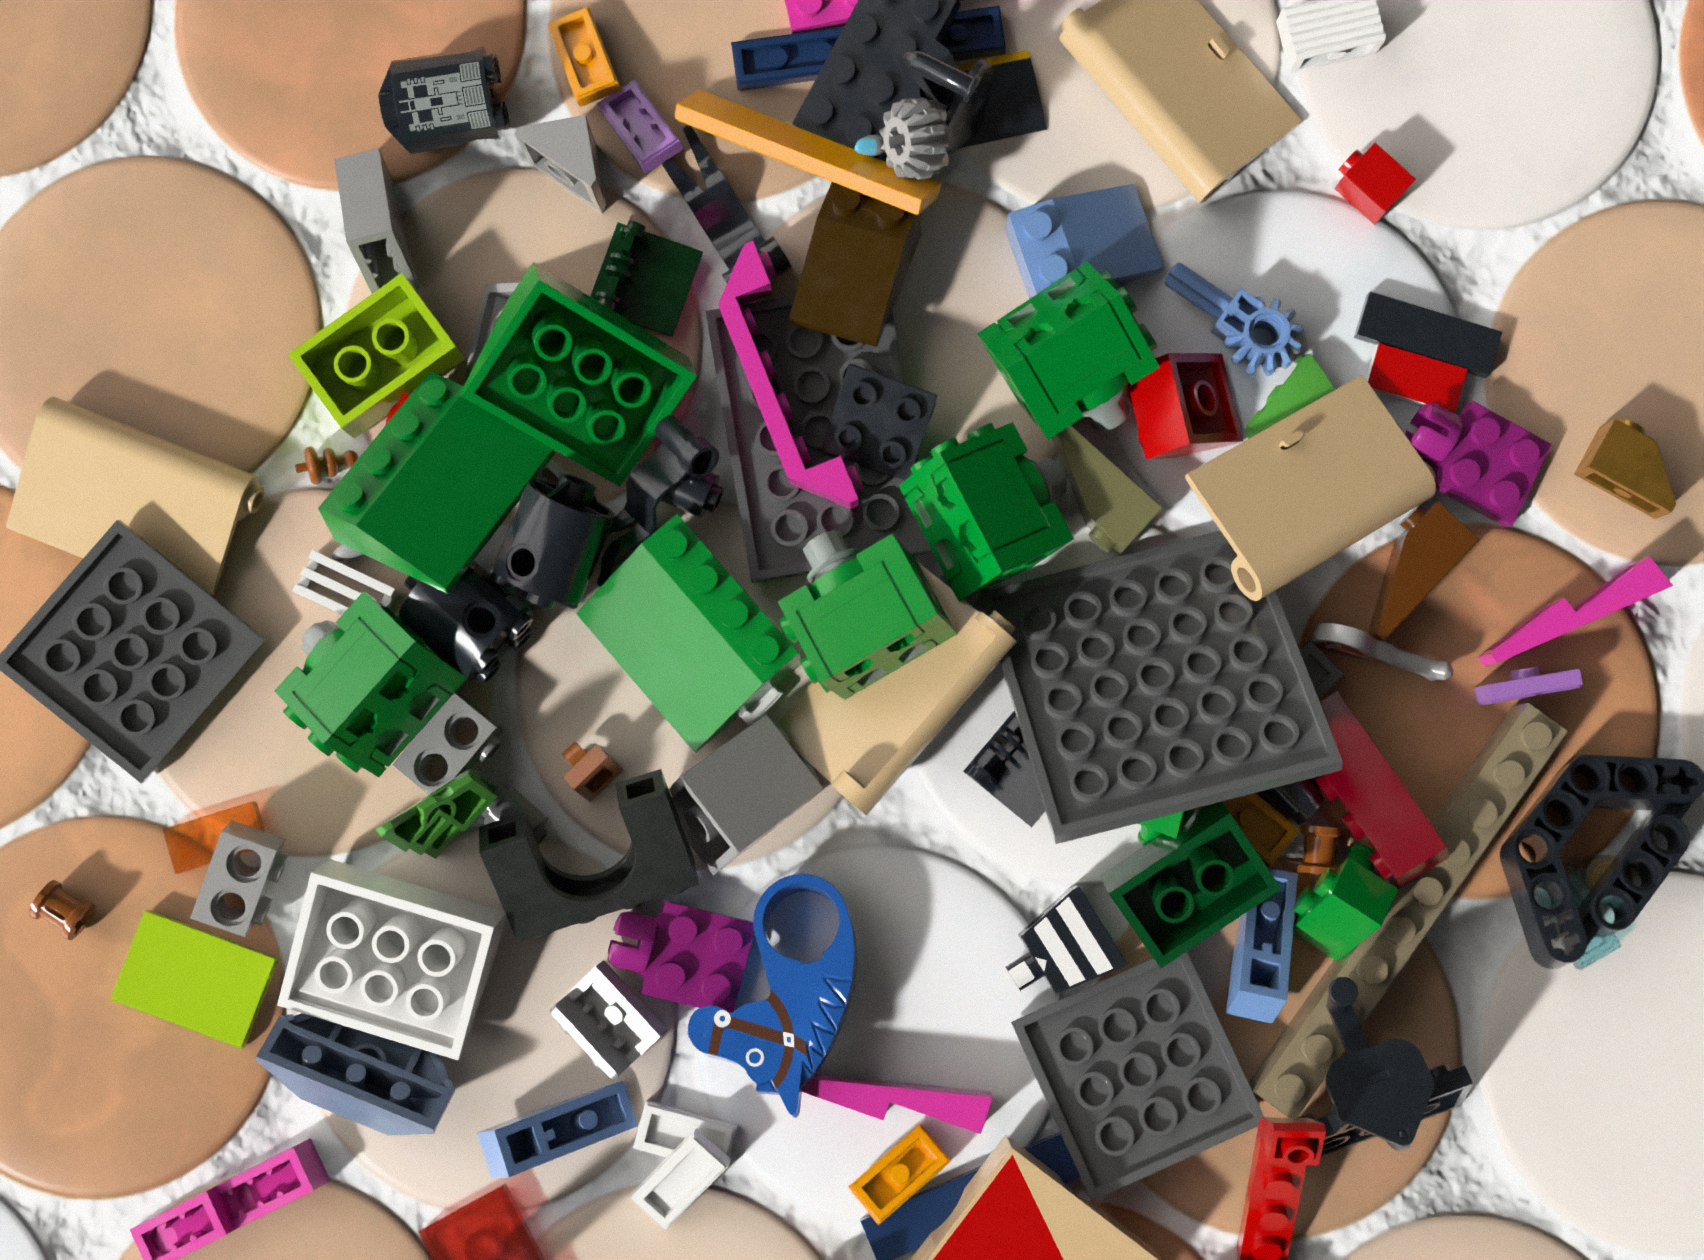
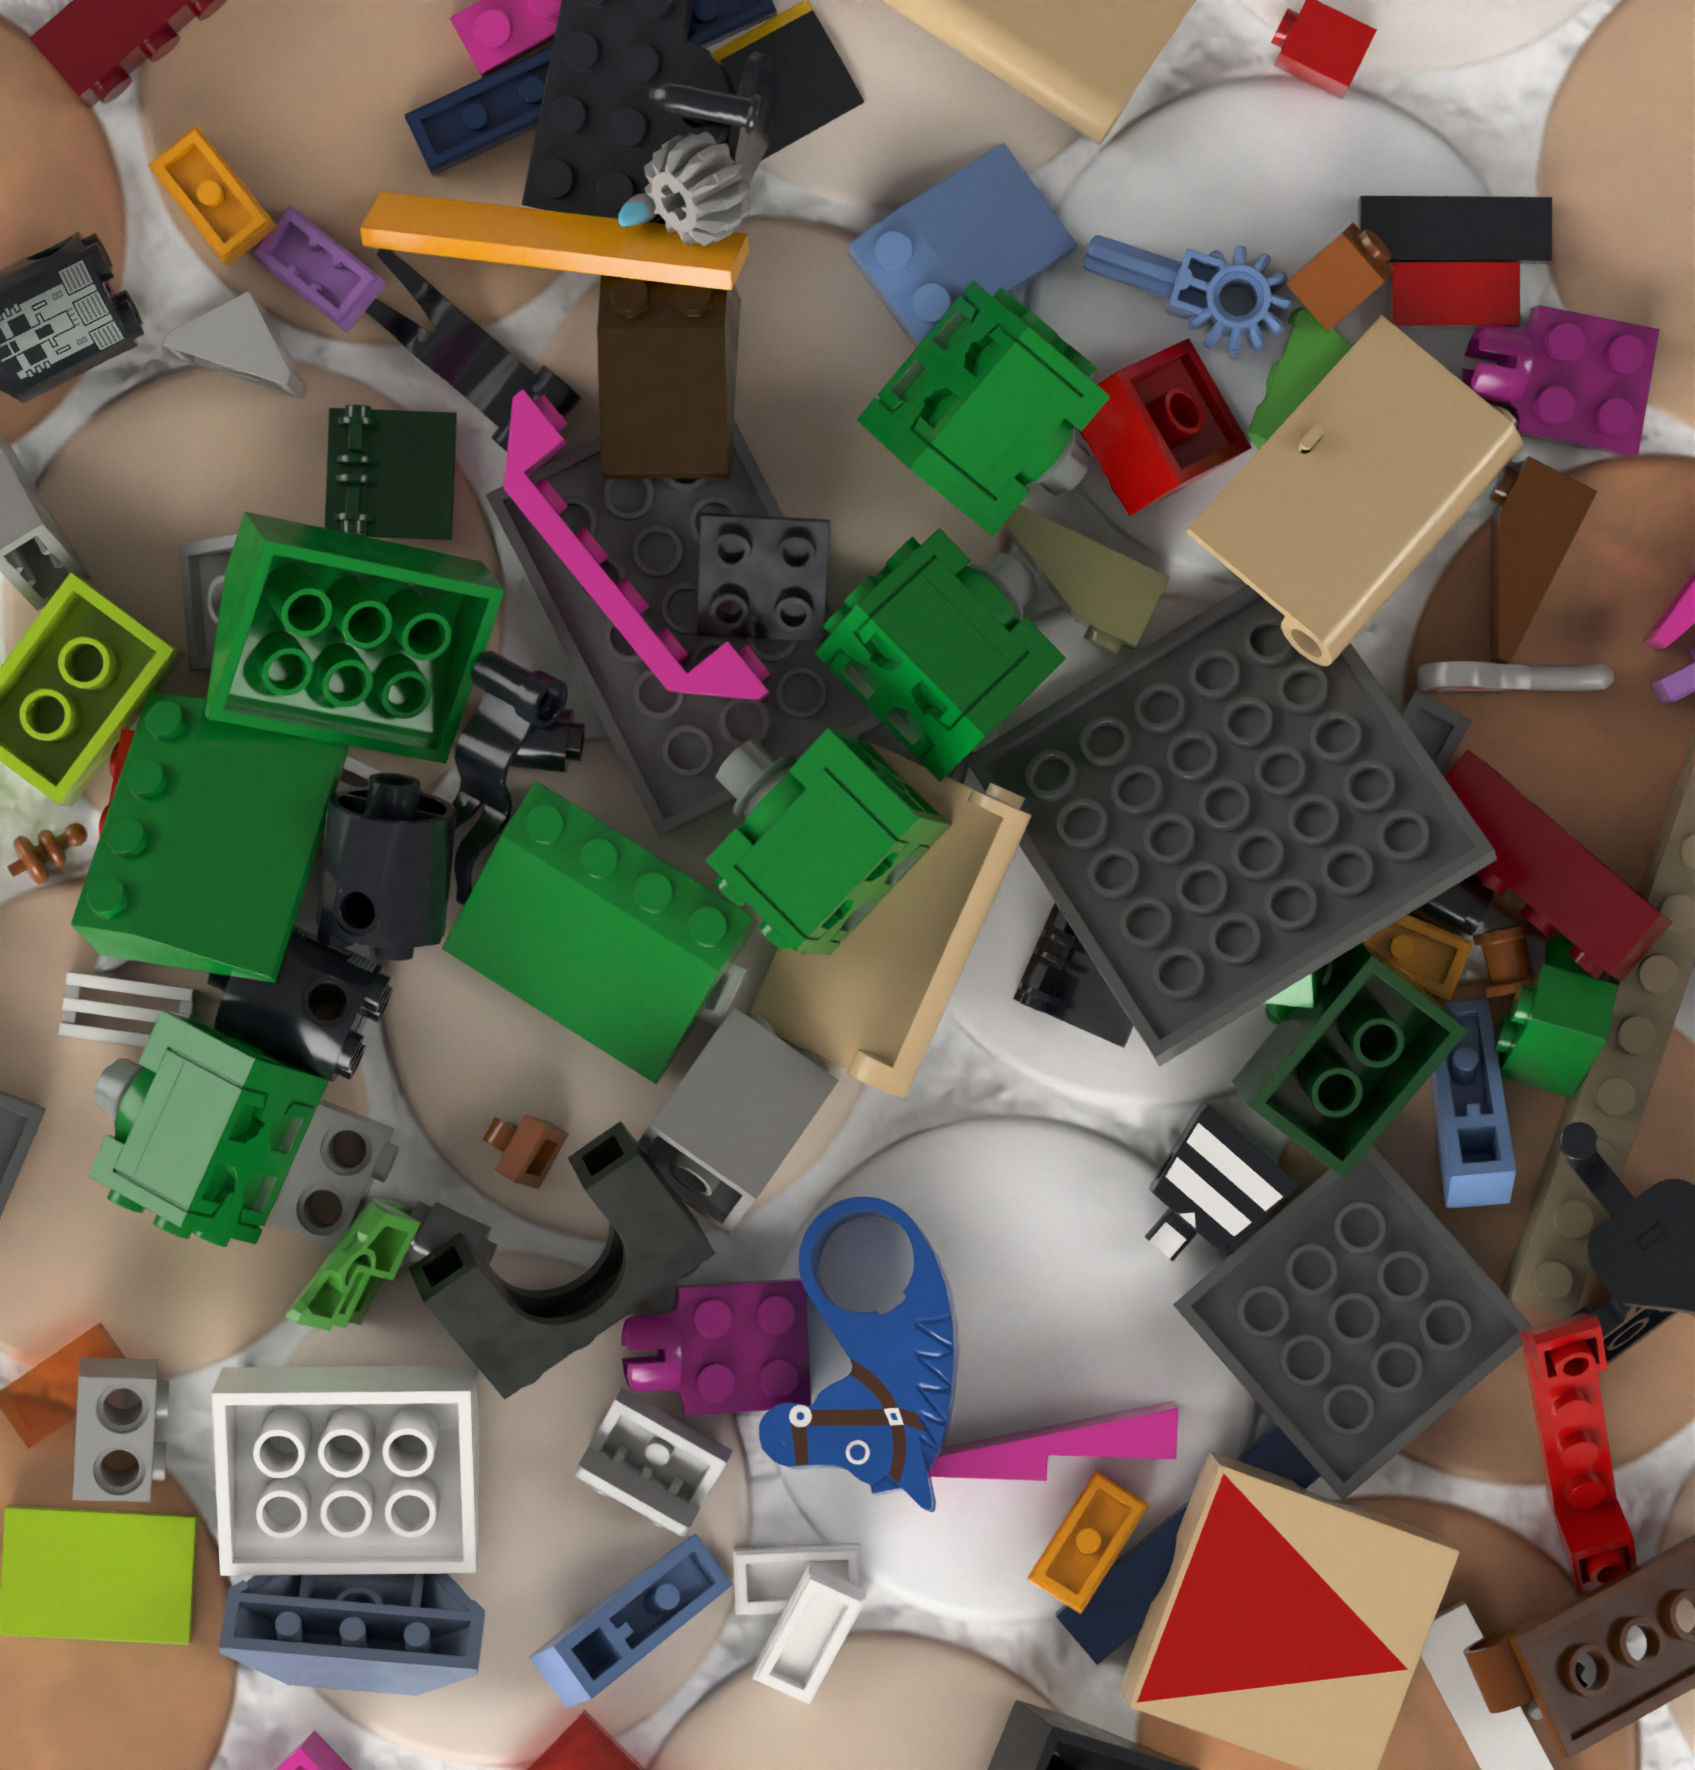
camera: 25 degrees left, 5 degrees up
(1343, 338) = (1342, 275): none -> dark orange brick

